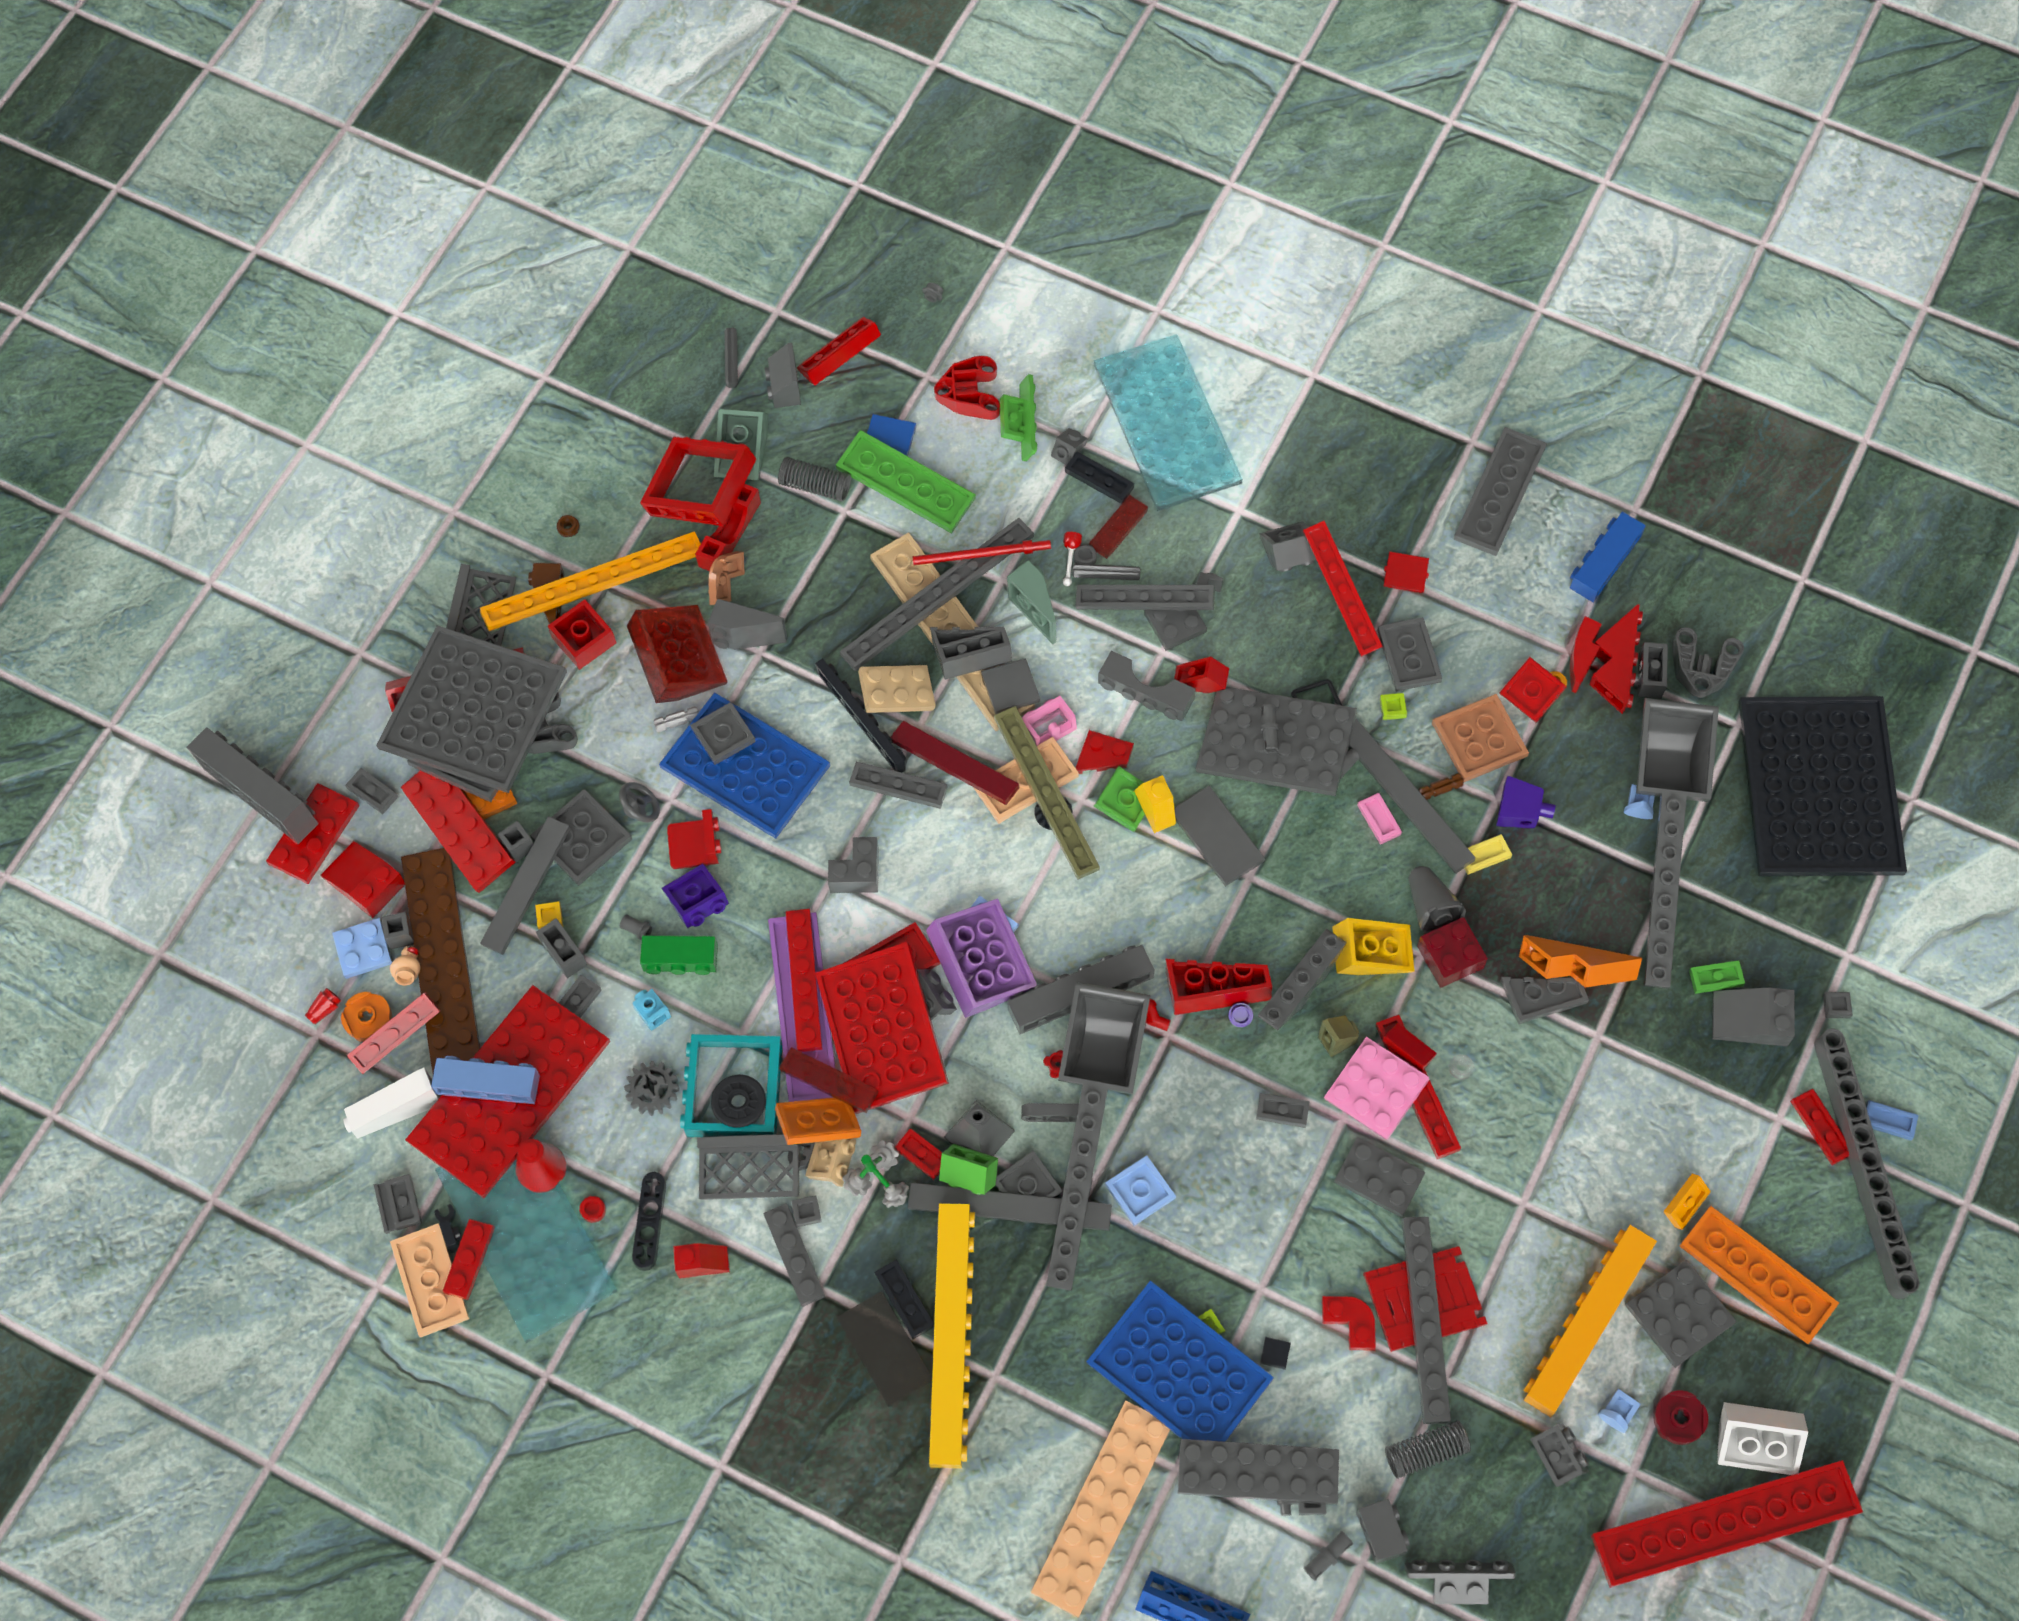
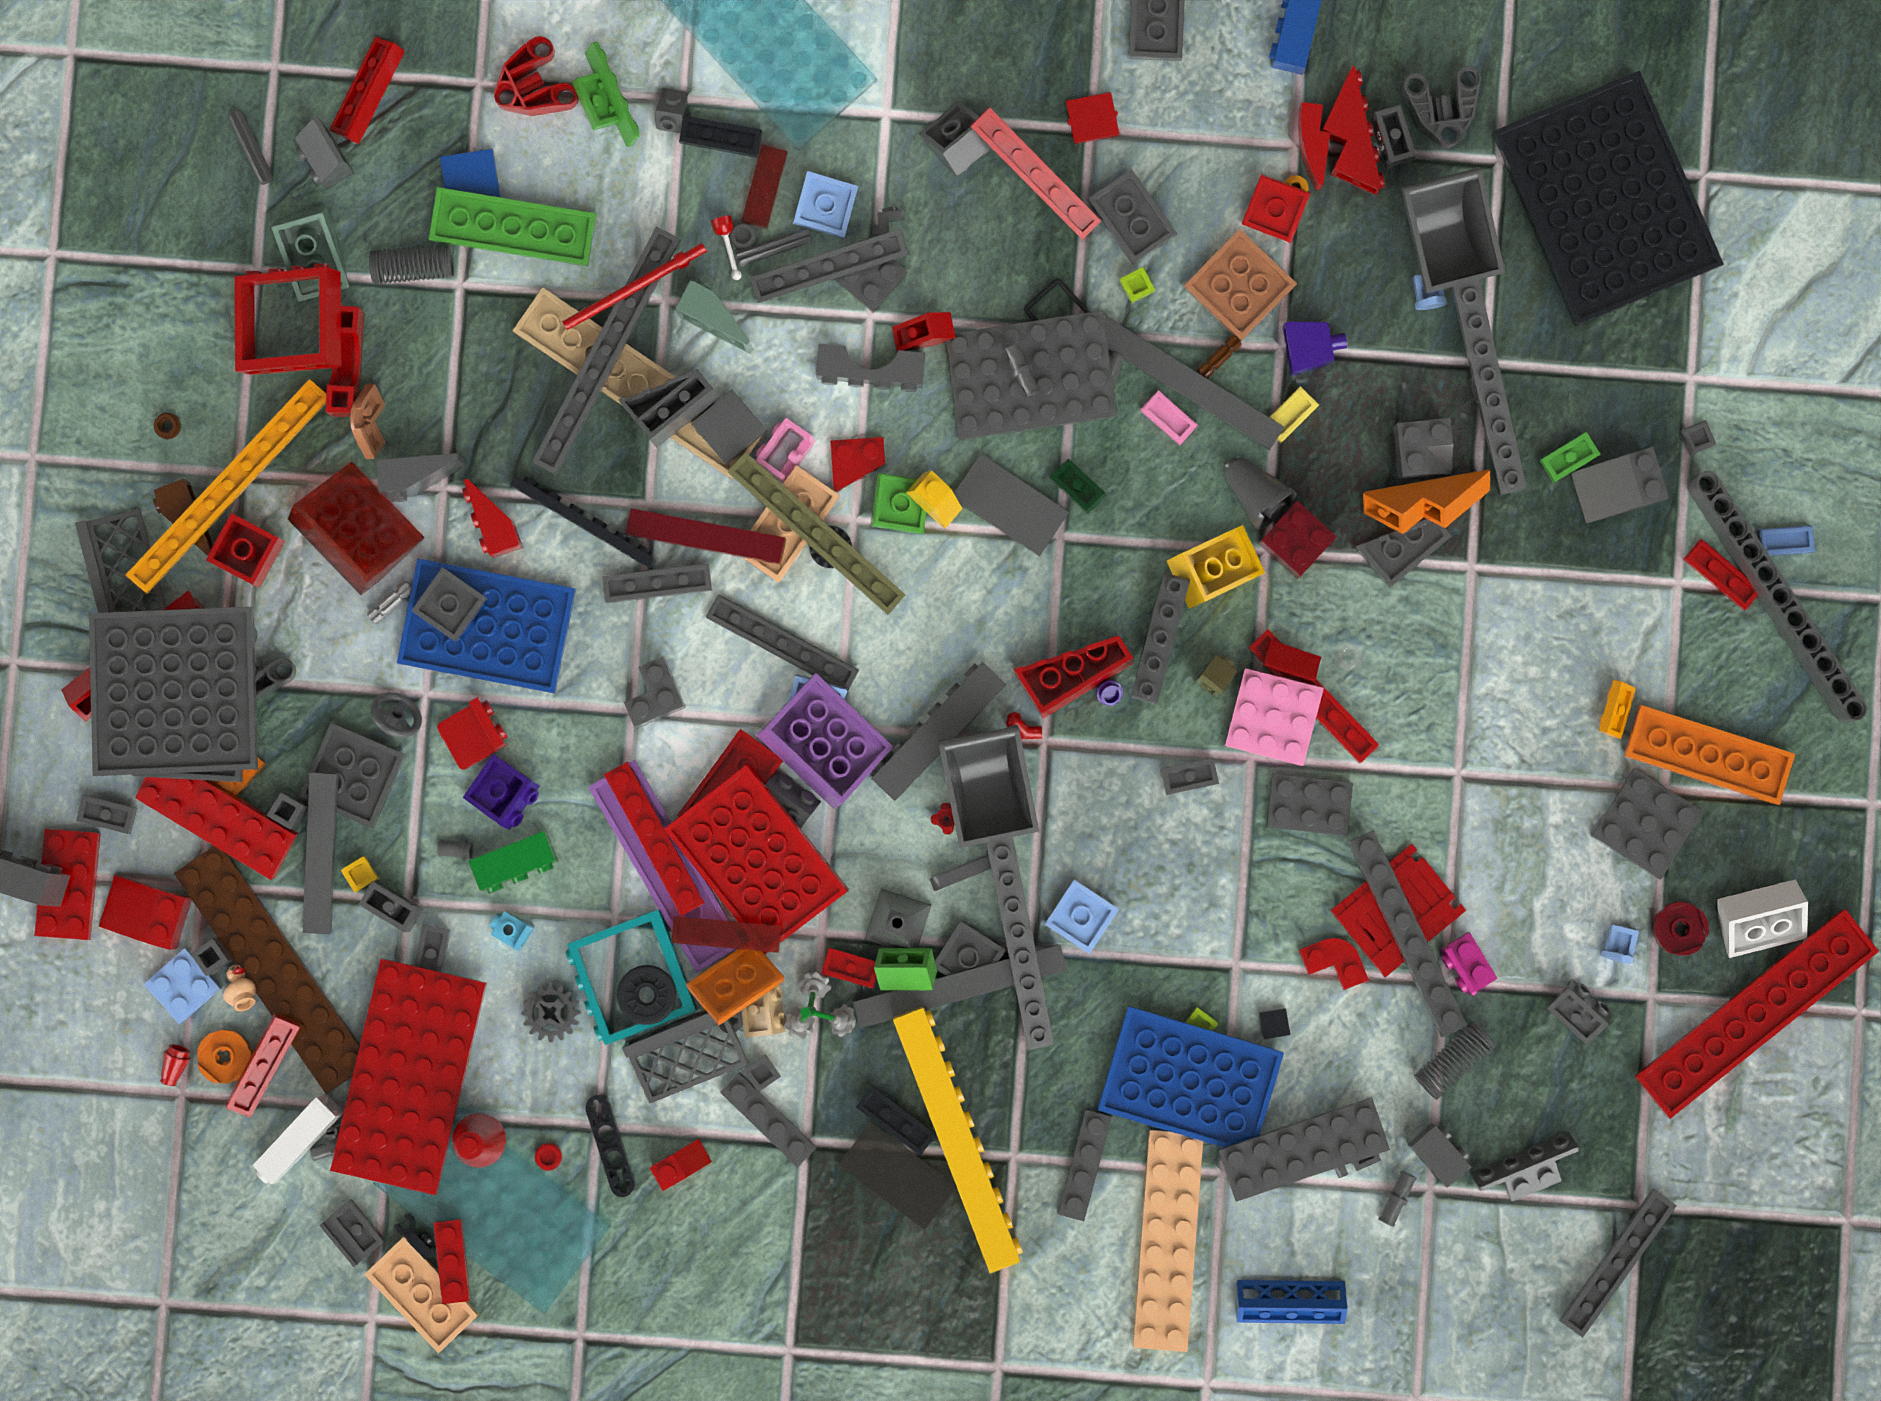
camera: 25 degrees left, 20 degrees up
(404, 1126) = (328, 1147): none -> dark grey arm
(485, 1080) = (383, 1083): medium blue brick -> none
(788, 692) = (497, 529): none -> red slope
(896, 688) = (609, 477): tan plate -> none
(979, 869) = (781, 643): none -> dark grey tile
(1054, 1409) = (1084, 1165): none -> dark grey plate
(1161, 555) = (825, 204): none -> light blue plate
(1281, 840) = (1078, 486): none -> dark green plate
(1472, 1371) = (1468, 964): none -> dark pink bracket
(1590, 919) = (1423, 448): none -> dark grey slope
(1590, 1320) = (1563, 868): light orange brick -> none

